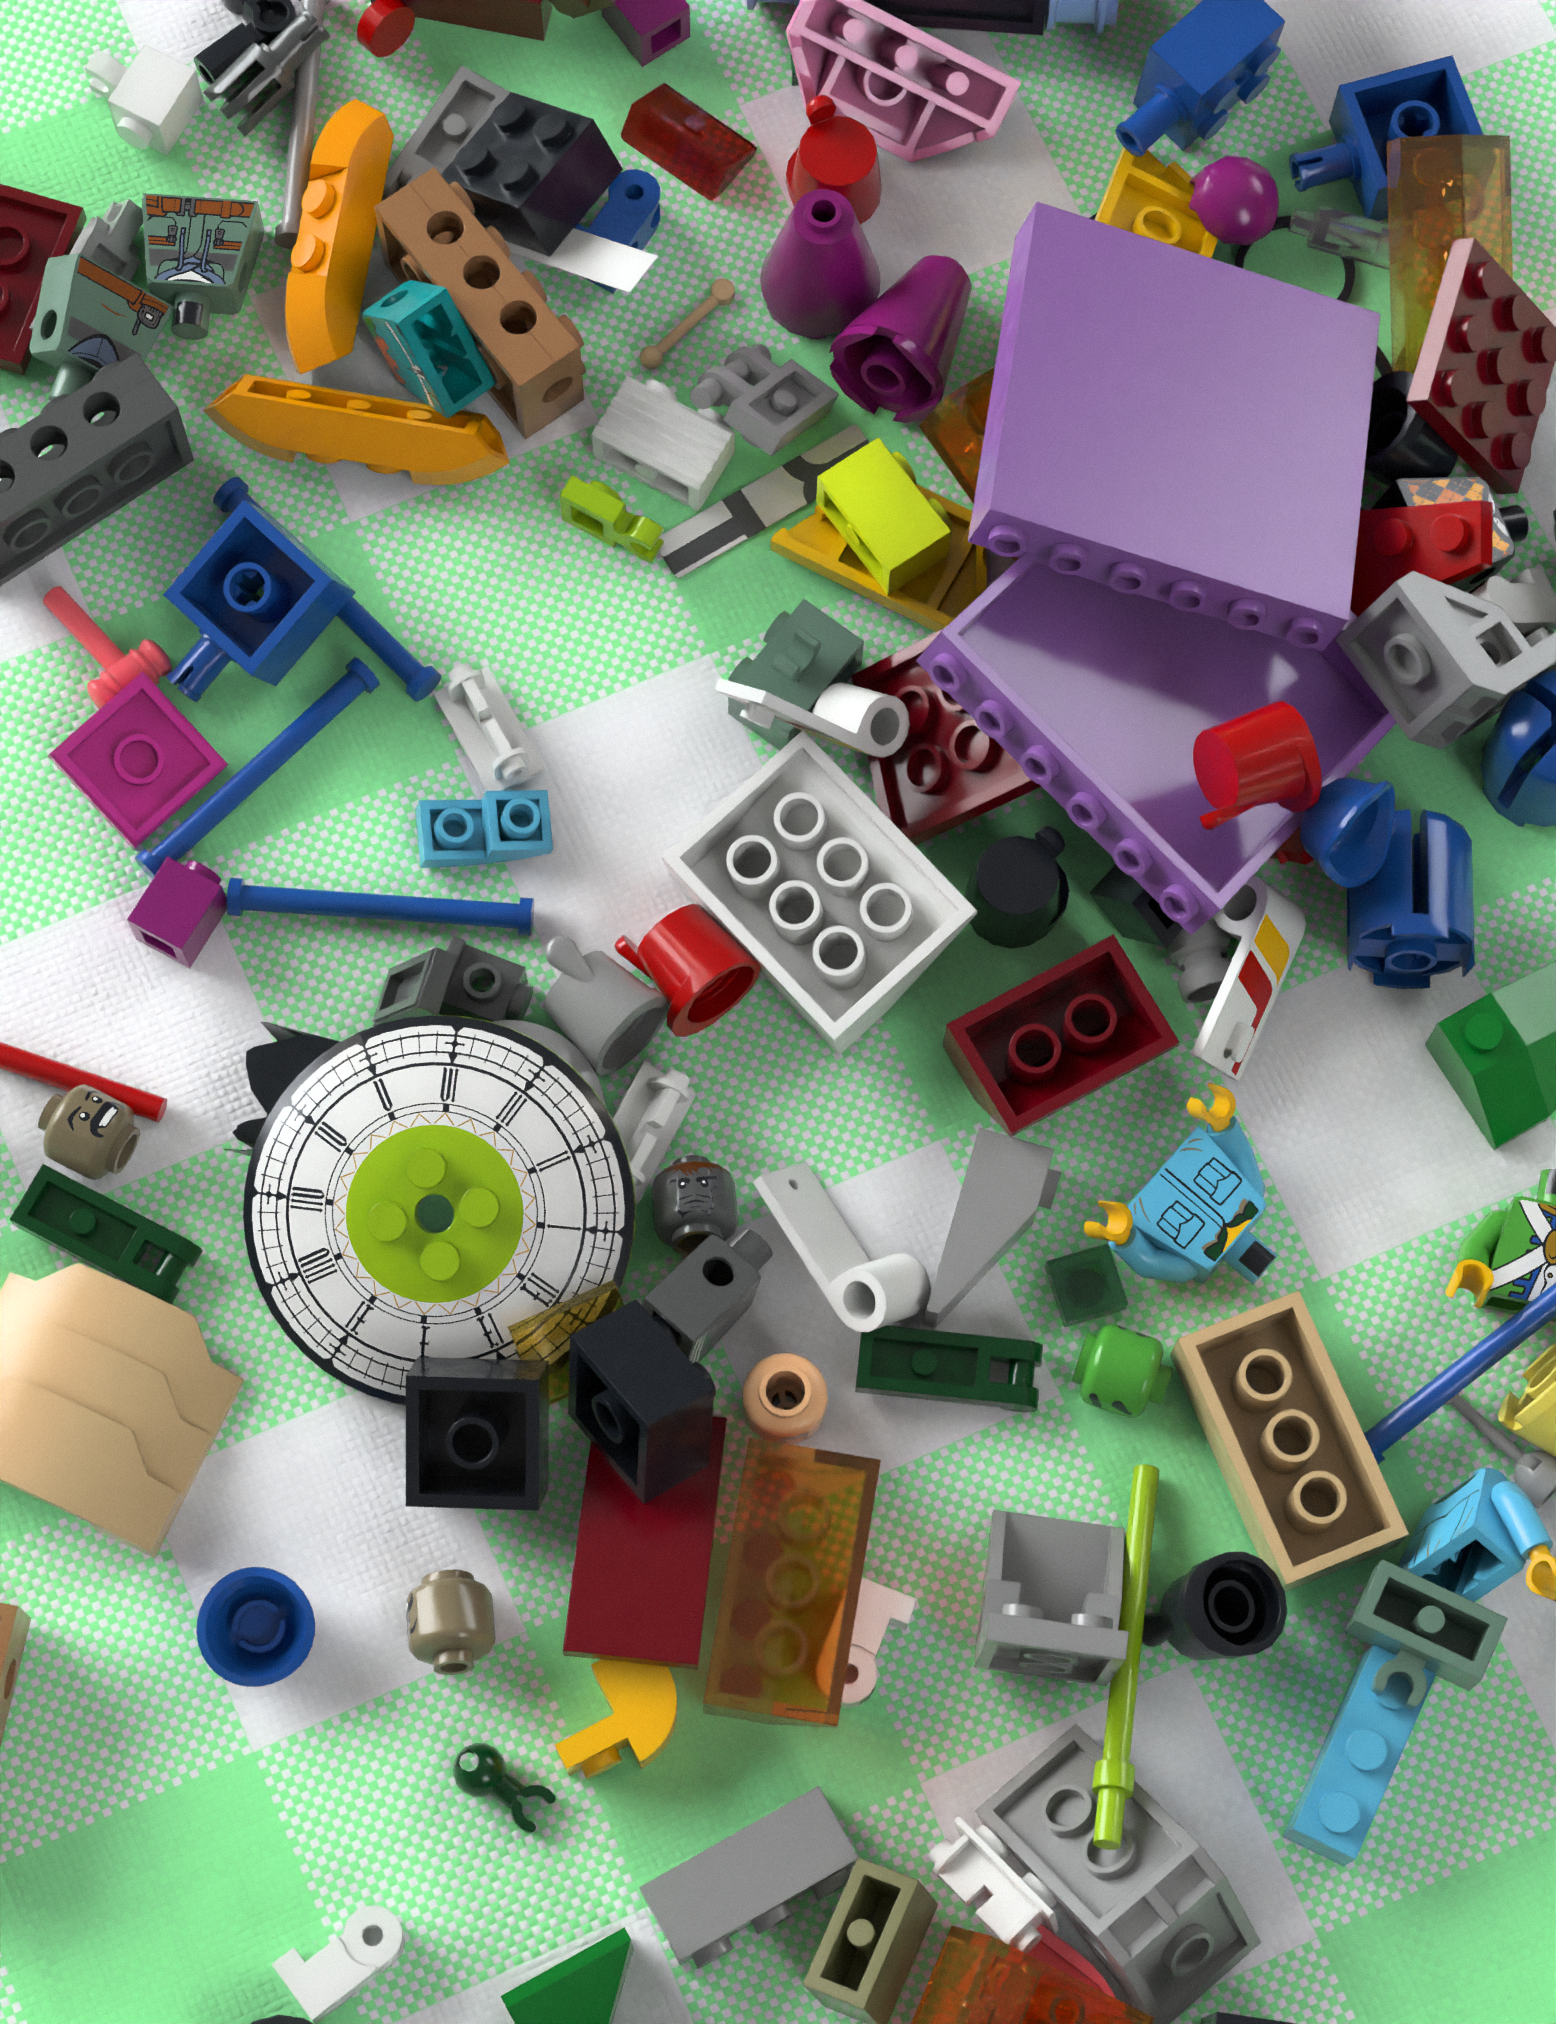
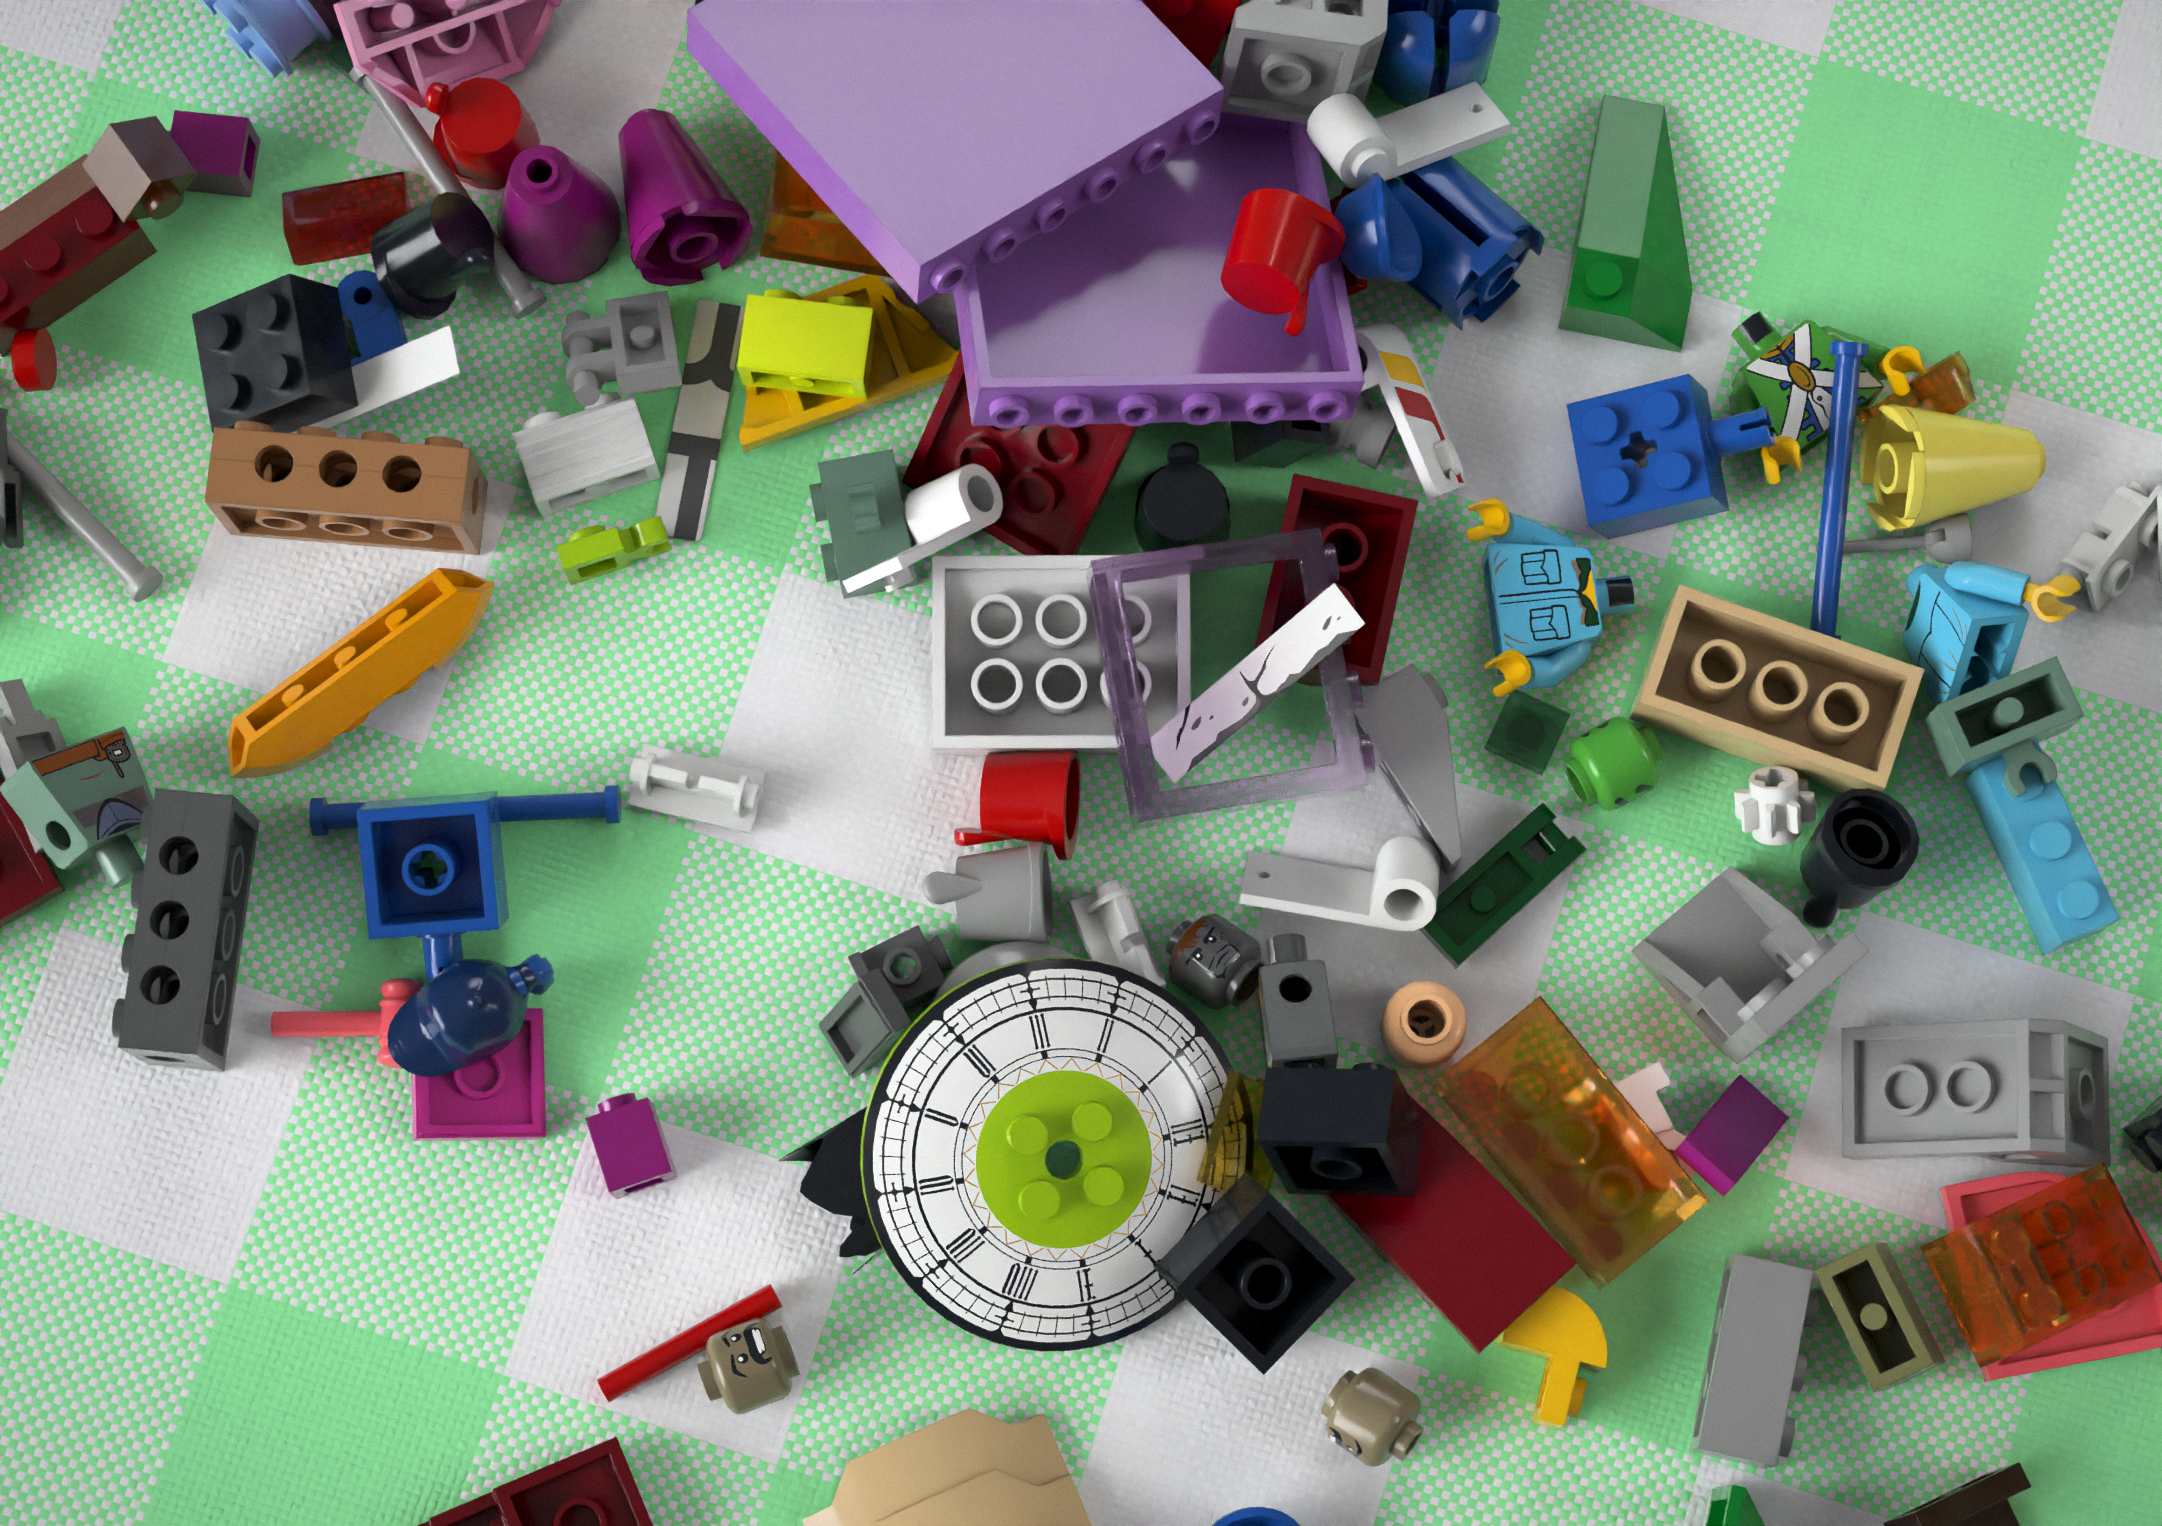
camera: 45 degrees left, 5 degrees up
(103, 1233) = (838, 1422): dark green plate -> none
(170, 709) = (465, 1014): none -> dark blue hair
(200, 256) = (96, 671): torso -> none
(261, 767) = (568, 990): blue bar -> none
(336, 235) = (183, 552): light orange brick -> none
(380, 906) = (764, 991): blue bar -> none
(422, 330) = (327, 556): teal torso -> none
(446, 128) = (174, 395): light grey hinge -> none
(485, 830) = (772, 860): medium azure slope -> none
(492, 1779) = (1512, 1488): dark green arm -> none
(706, 209) = (432, 253): none -> black hat
(721, 294) = (498, 305): tan hinge -> none
(741, 304) = (523, 296): none -> light grey bar
(817, 949) = (1340, 687): none -> clear purple windscreen
(910, 1705) = (1731, 1135): none -> magenta tile
(919, 1034) = (1255, 682): none -> white sticker
(1016, 1903) = (1939, 1185): white hinge -> none
(1113, 1773) = (1916, 1034): lime bar -> none
(1201, 1519) = (1775, 805): none -> white gear
(1387, 1191) = (1681, 477): none -> blue brick
(1442, 792) = (1405, 139): none -> white door

